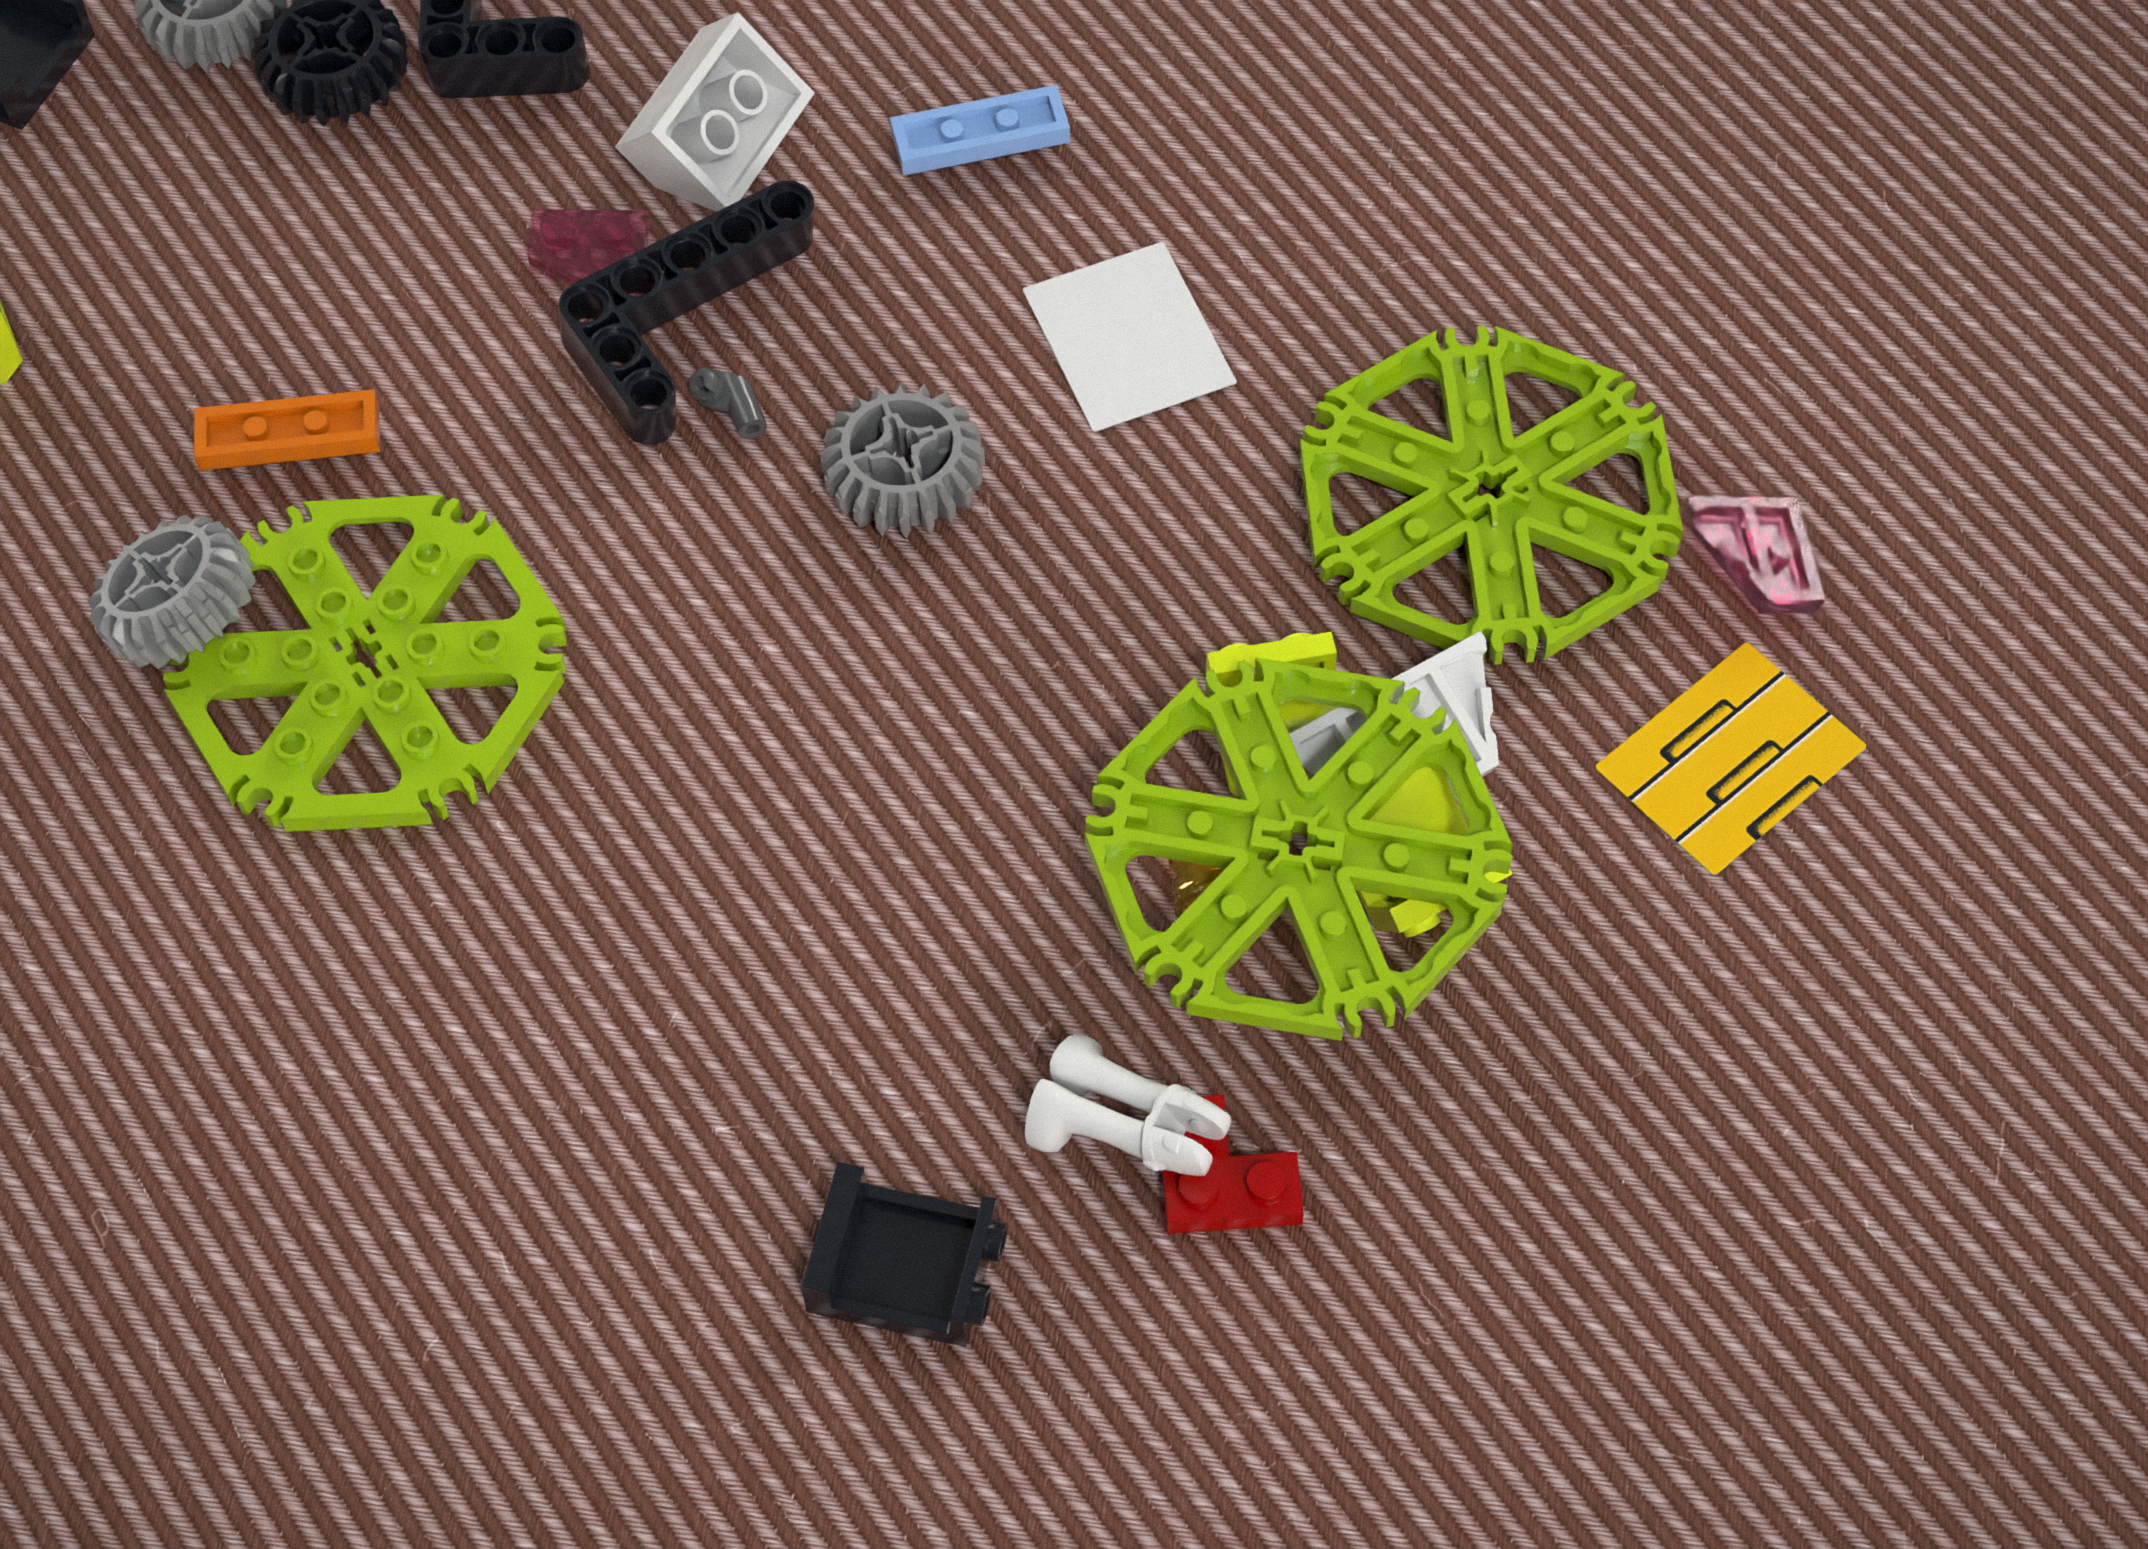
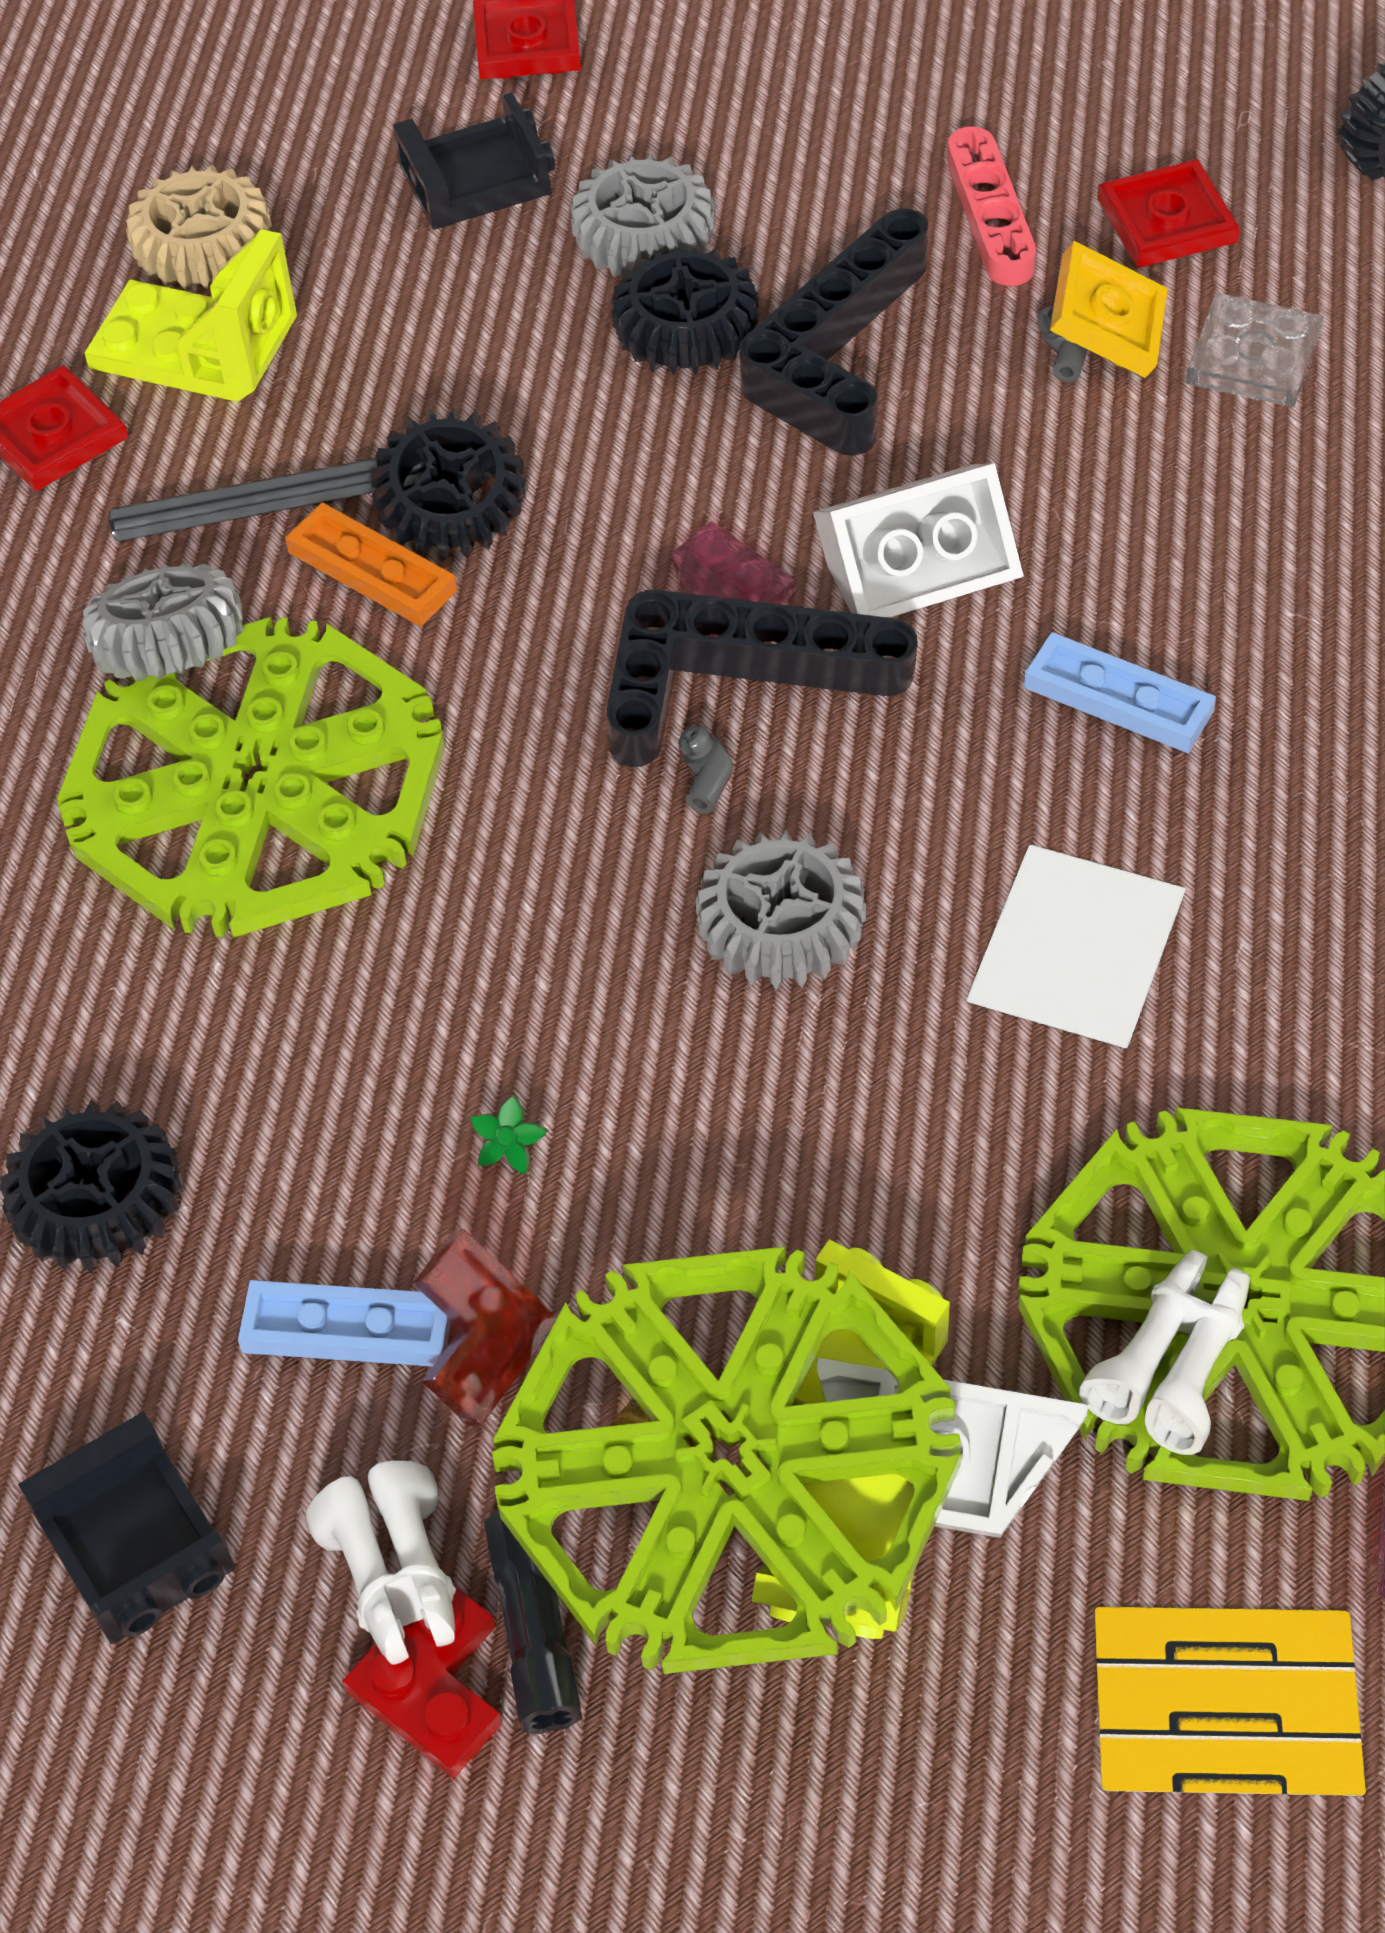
camera: 45 degrees right, 5 degrees down
(153, 414) = (246, 500): none -> black axle
(253, 298) = (433, 508): none -> black gear
(573, 1023) = (76, 1218): none -> black gear
(875, 771) = (507, 1135): none -> green plant
(901, 990) = (342, 1323): none -> light blue plate
(1021, 902) = (497, 1325): none -> clear red plate
(1293, 1098) = (538, 1651): none -> black axle
(1495, 598) = (1177, 1410): none -> white piece

